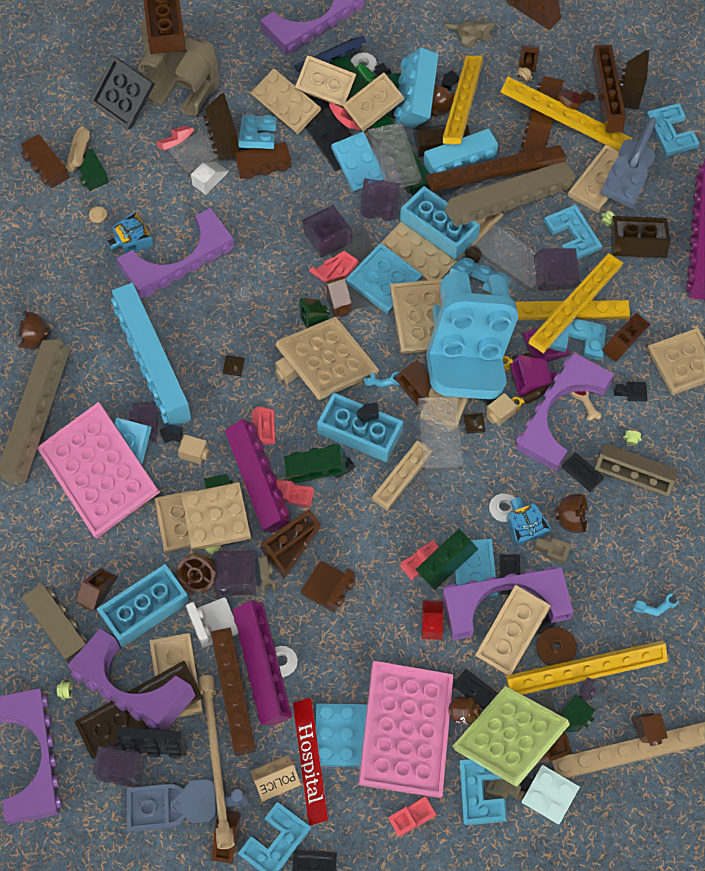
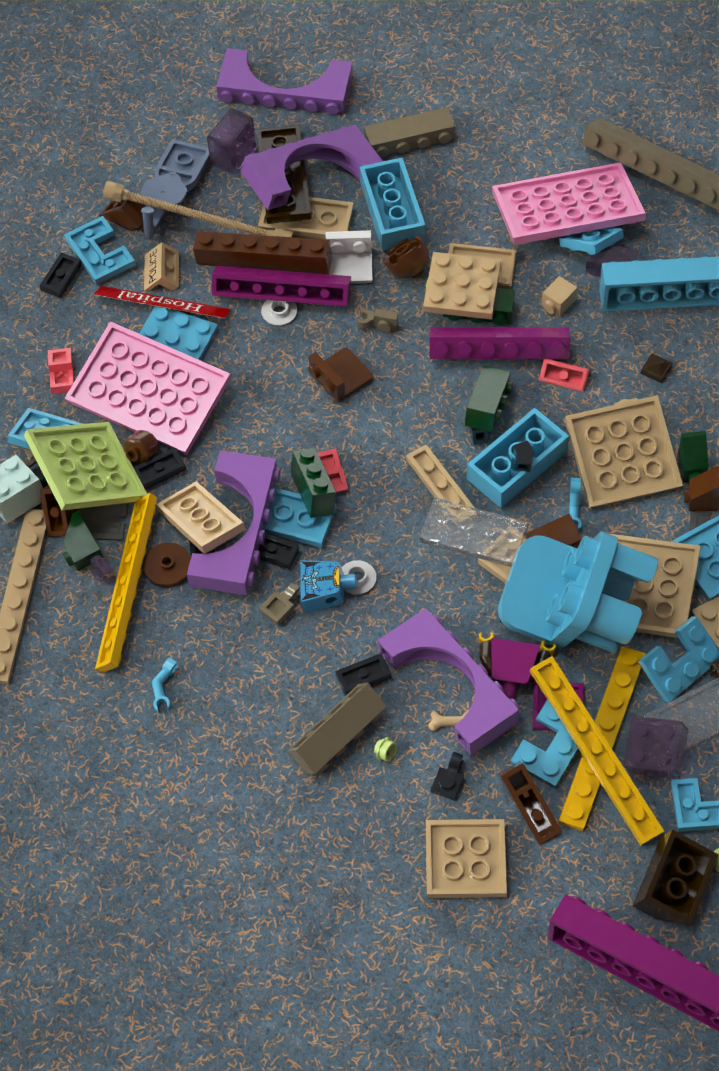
camera: 115 degrees right, 5 degrees down
(63, 690) = (335, 124): yellowish green plate -> none
(95, 589) = (432, 174): reddish brown slope -> none
(153, 742) = (229, 168): black plate -> none
(171, 433) = (589, 285): black piece -> none
(235, 573) = (393, 291): clear purple brick -> none
(290, 542) = (402, 349): reddish brown wedge -> none
(296, 494) = (466, 377): coral slope -> none
(432, 620) = (255, 445): red slope -> none
(474, 423) = (479, 585): dark brown tile -> none
(501, 410) = (482, 615): tan brick -> none
(572, 513) = (309, 632): reddish brown cylinder -> none
(650, 728) = (28, 606): reddish brown slope -> none

